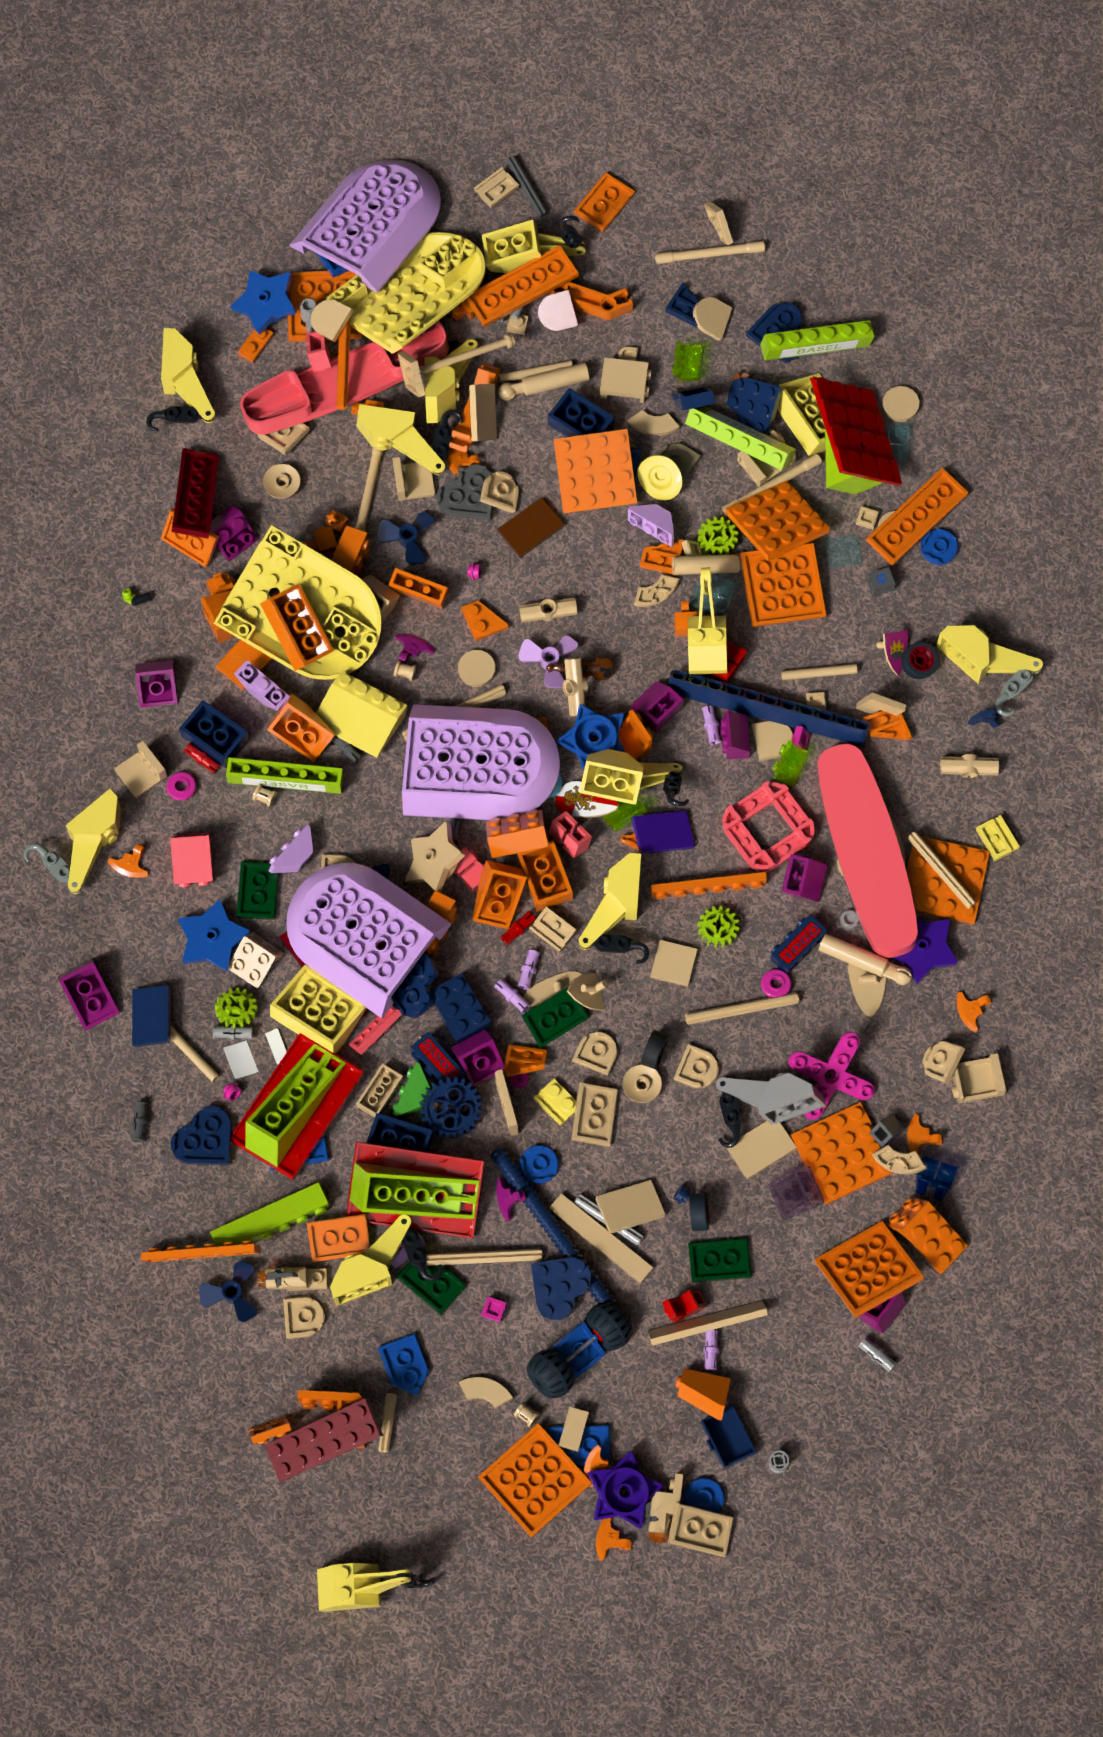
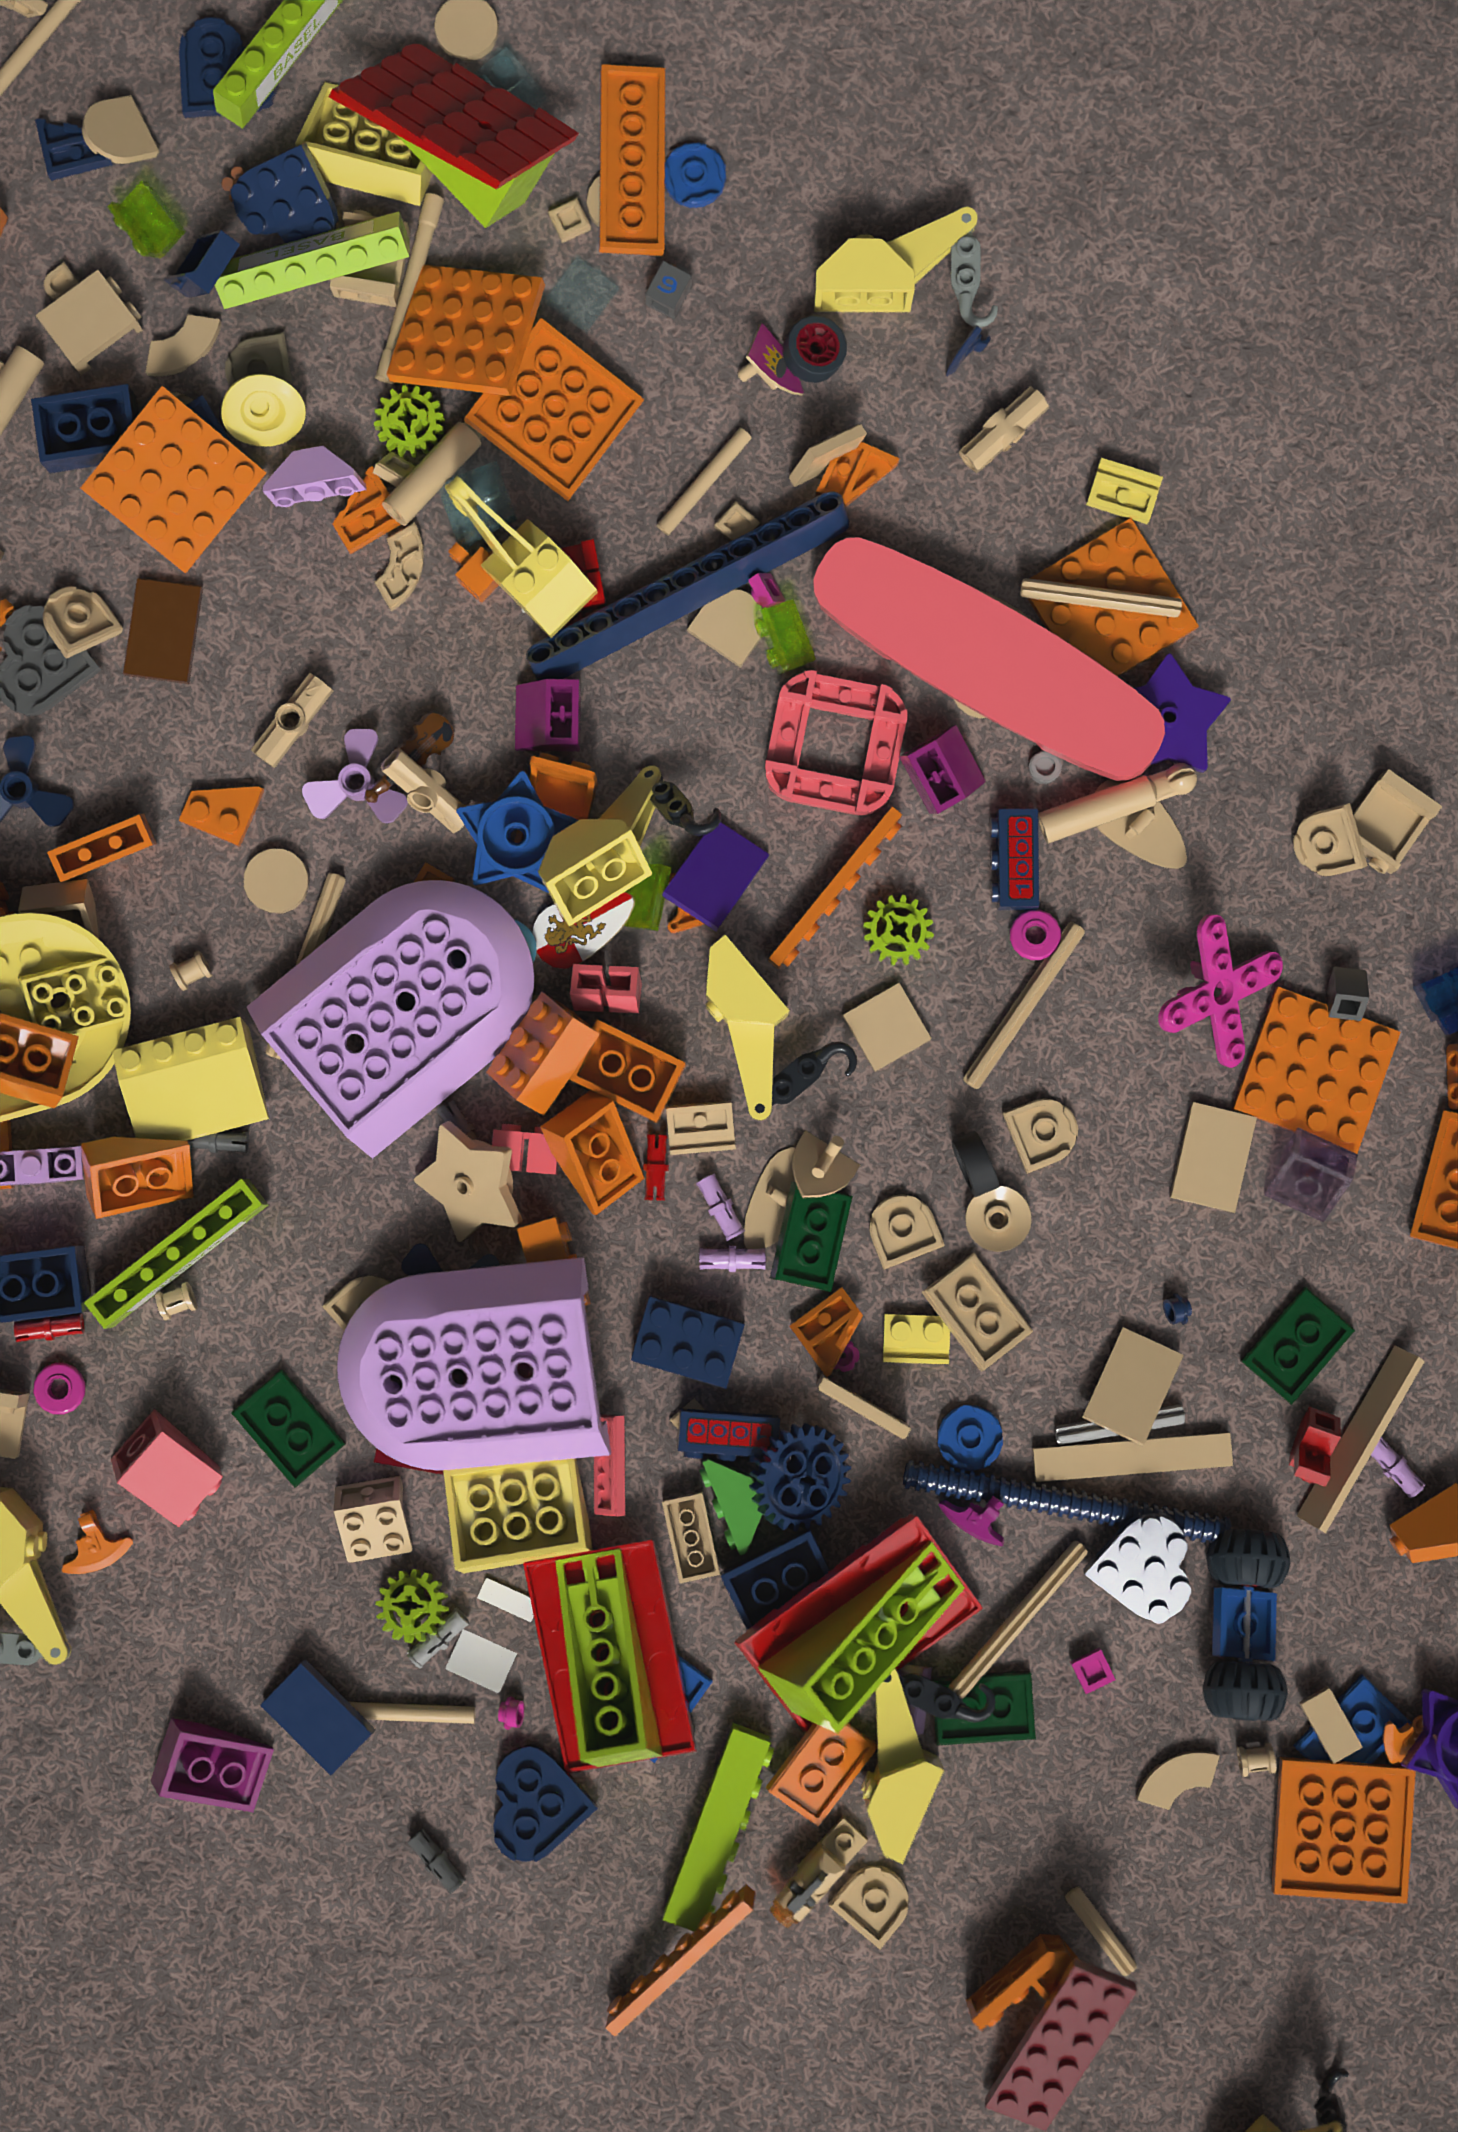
camera: 45 degrees left, 15 degrees up
(212, 1294) = (794, 1966): dark blue piece -> none
(214, 950) = (311, 1530): blue plate -> none
(277, 1427) = (974, 2085): orange plate -> none
(294, 853) = (289, 1340): lavender slope -> none
(405, 1363) = (1050, 1839): blue tile -> none
(412, 646) = (169, 928): magenta piece -> none
(413, 993) = (620, 1381): dark blue plate -> none
(474, 571) = (148, 756): dark pink plate -> none
(478, 1058) = (769, 1379): magenta slope -> none
(699, 1212) = (1224, 1314): black wheel -> none
(711, 725) = (638, 677): lavender pin -> none
(735, 735) = (685, 664): magenta slope -> none
(776, 1100) = (1178, 1091): light grey slope -> none
(899, 1162) = (1401, 1021): tan tile -> none
(920, 1136) = (1384, 960): orange piece -> none
(971, 1010) = (1297, 743): orange piece -> none

